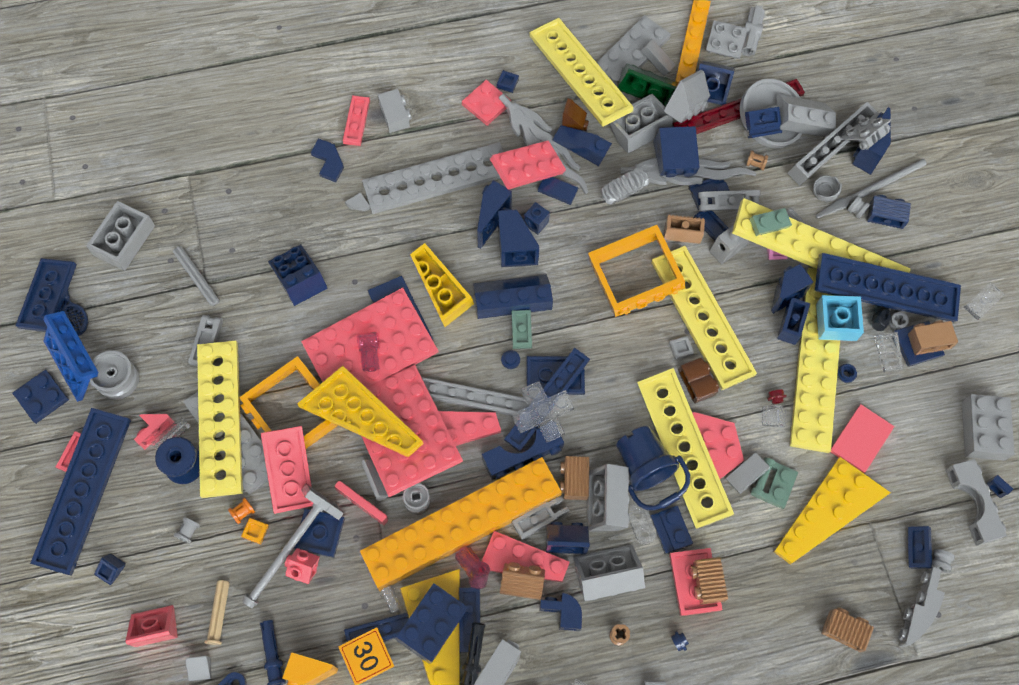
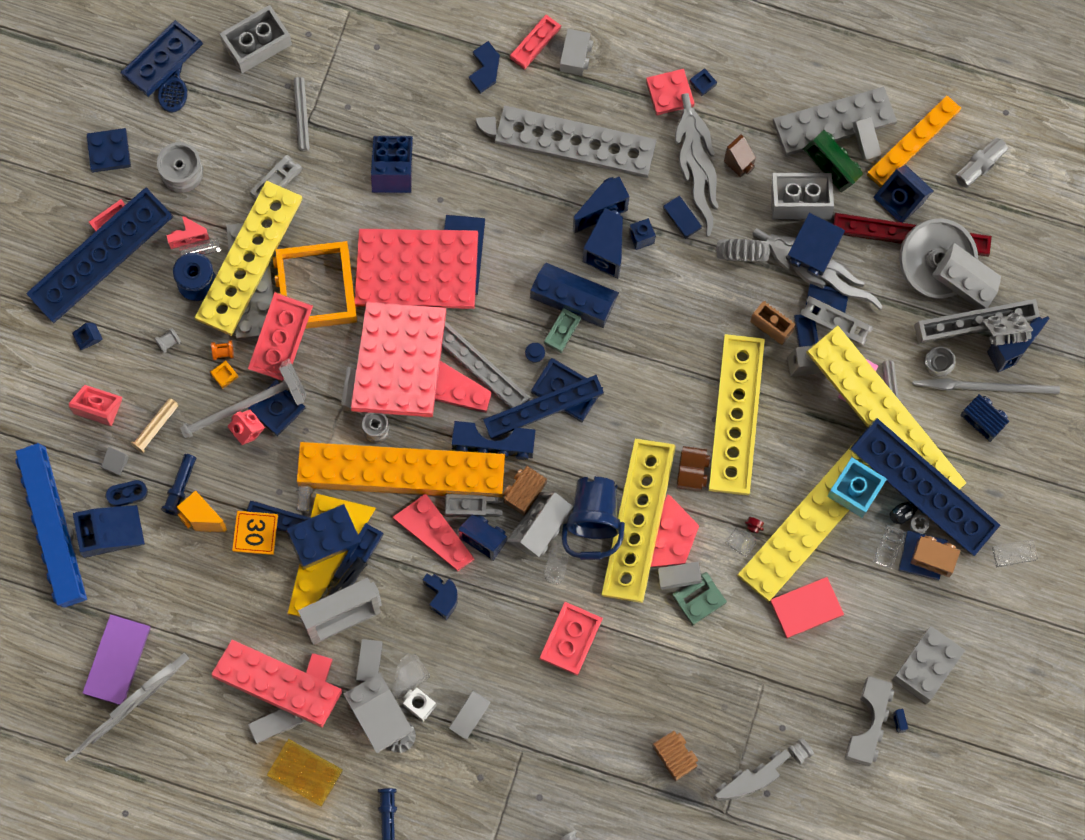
camera: 30 degrees right, 5 degrees up
(69, 353) = (152, 126): blue fence -> none
(355, 408) = (367, 315): yellow wing -> none
(361, 503) = (328, 406): coral tile -> none
(368, 345) = (413, 266): clear pink piece -> none
(444, 290) = (513, 253): yellow wedge -> none
(475, 569) = (388, 513): clear pink piece -> none
(522, 581) = (422, 548): medium nougat brick -> none
(527, 164) = (663, 178): coral plate -> none
(542, 411) = (530, 415): clear plate -> none
(576, 80) = (767, 118): light yellow plate -> none
(582, 143) = (733, 185): dark blue slope -> none
(609, 572) = (501, 586): light grey slope -> none
(613, 633) = (481, 637): medium nougat bush -> none
(623, 246) = (702, 306): light orange window -> none
(671, 530) = (580, 584): dark blue plate -> none
(680, 641) = (524, 678): dark blue plate -> none
(681, 347) = (698, 431): light grey tile -> none
(689, 97) = (861, 197): light grey slope -> none
(709, 581) = (580, 643): medium nougat brick -> none
(726, 39) = (946, 158): light grey hinge -> none
(763, 122) = (917, 262): dark blue plate -> none
(763, 159) = (892, 296): medium nougat bush -> none
(770, 222) = (846, 362): sand green plate -> none
(792, 284) = (833, 435): dark blue slope -> none
(793, 321) = (815, 466): dark blue brick -> none
(836, 502) = (741, 648): yellow wing -> none
(847, 368) = (838, 537): dark blue plate -> none
(858, 207) = (958, 397): light grey wheel -> none
(919, 547) = (789, 728): dark blue plate -> none

